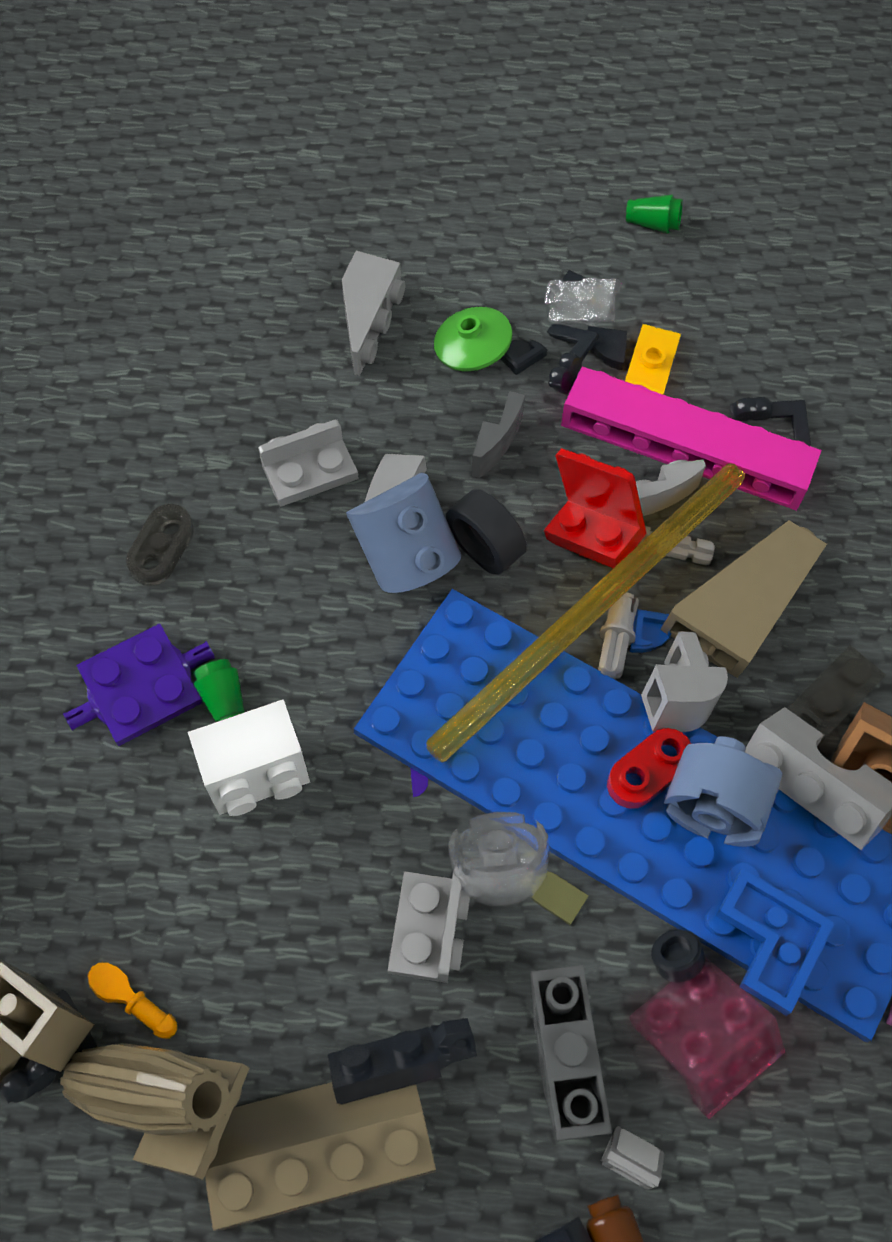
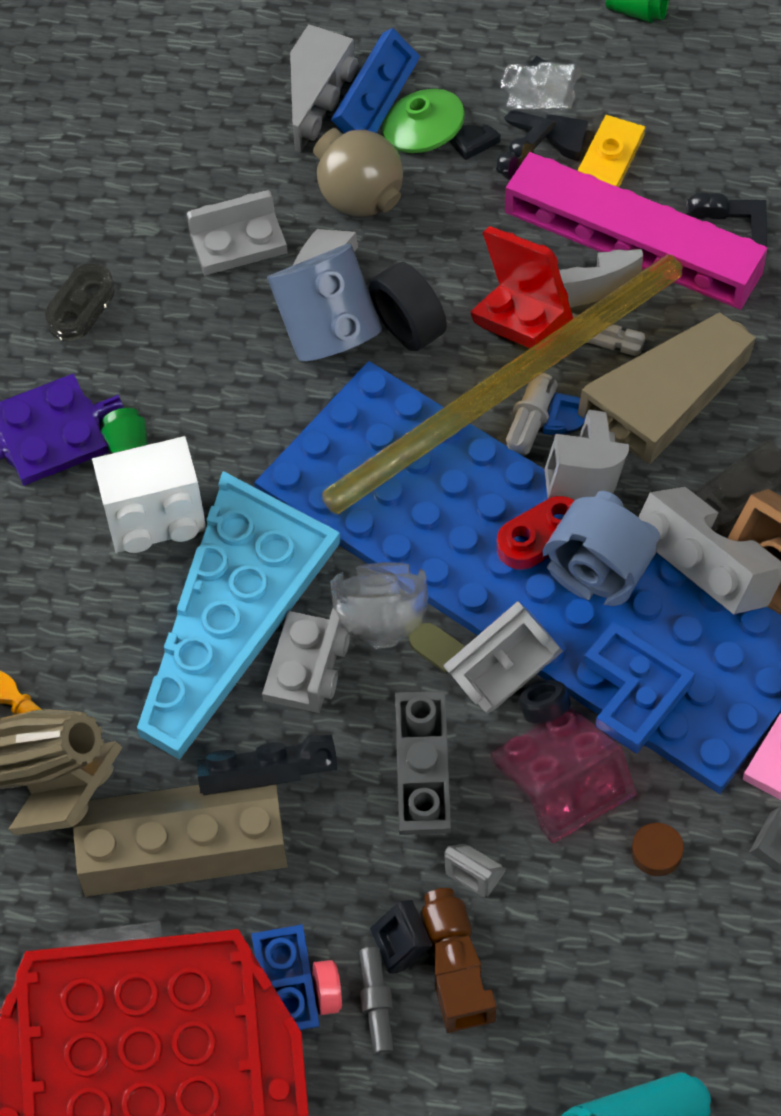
camera: 10 degrees right, 5 degrees down
(349, 855) = (236, 595): none -> medium azure wing
(421, 395) = (358, 172): none -> dark tan brick
(424, 309) = (376, 84): none -> blue plate
(496, 438) = (432, 221): dark grey slope -> none
(633, 915) = (503, 658): none -> light grey hinge
(817, 1117) = (657, 849): none -> reddish brown tile

